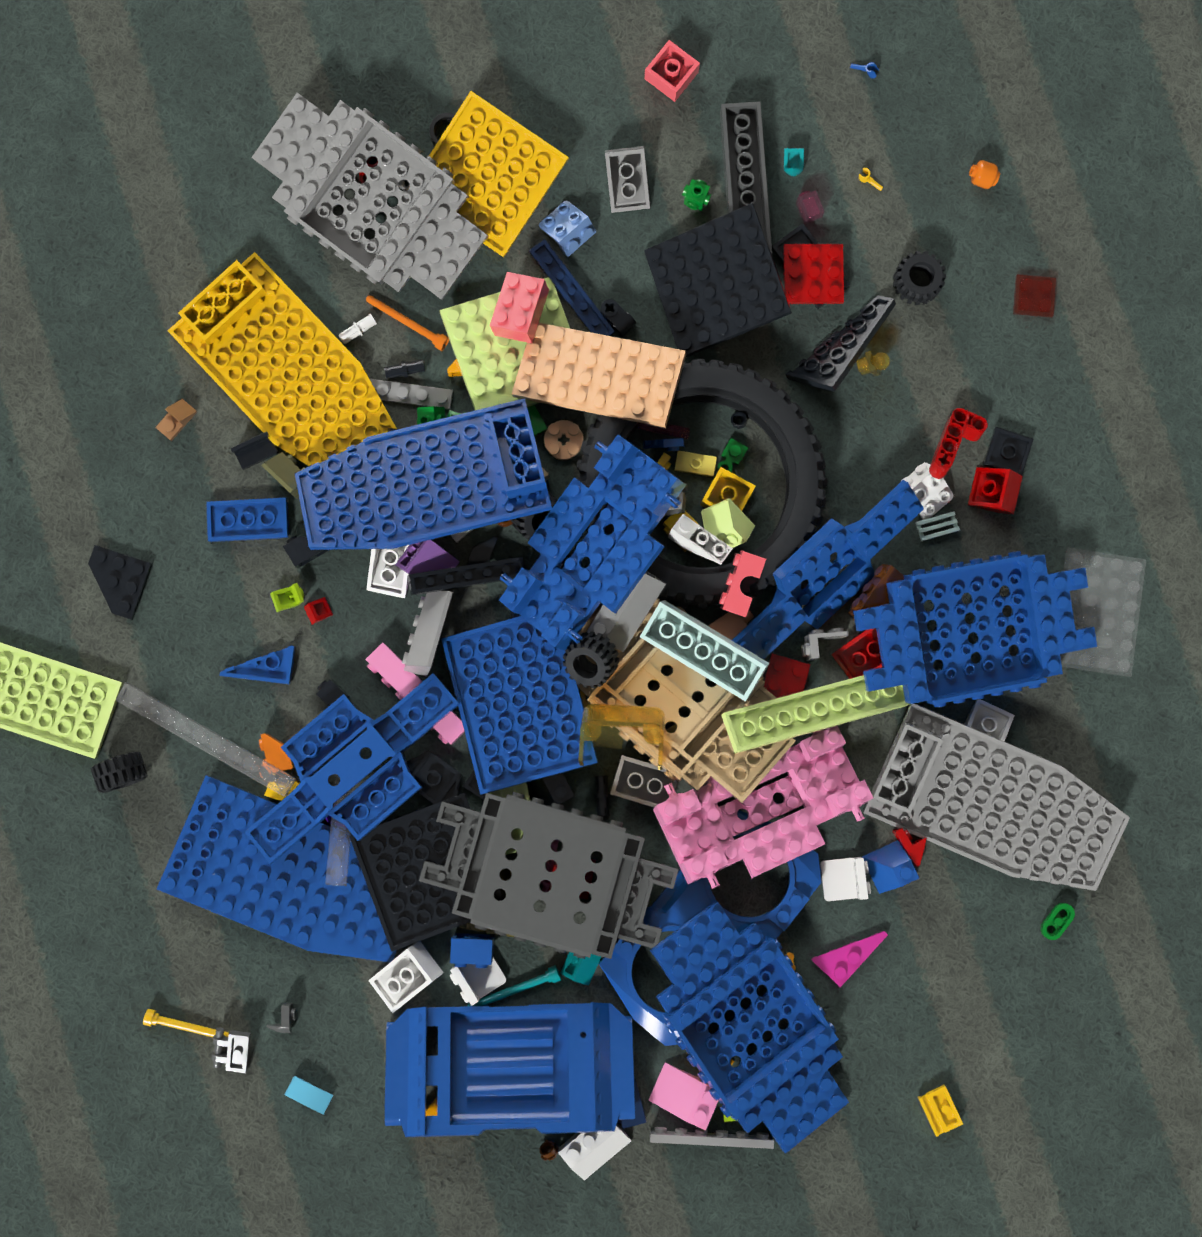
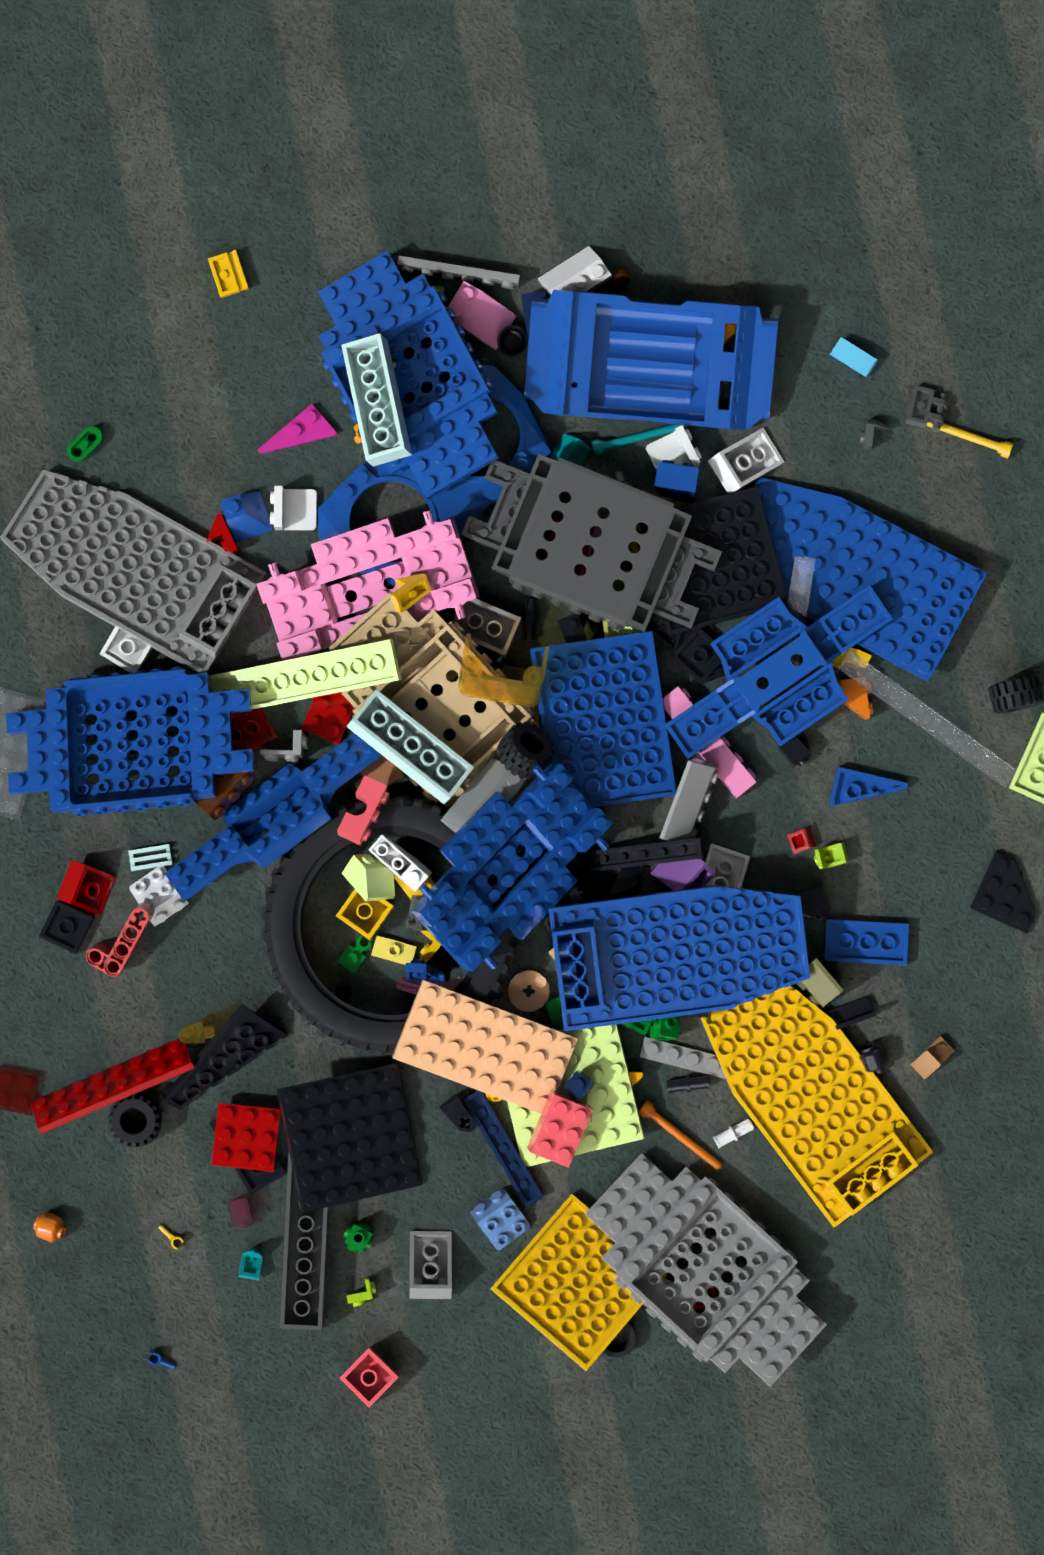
camera: 170 degrees left, 0 degrees up
(230, 411) = (873, 1057): none -> black head
(505, 350) = (578, 1085): none -> dark blue brick
(649, 1073) = (512, 340): none -> black hair
(688, 142) = (359, 1298): none -> lime bracket
(722, 804) = (410, 591): none -> yellow slope
(779, 996) = (376, 400): none -> light aqua brick
(946, 307) = (111, 1085): none -> red plate

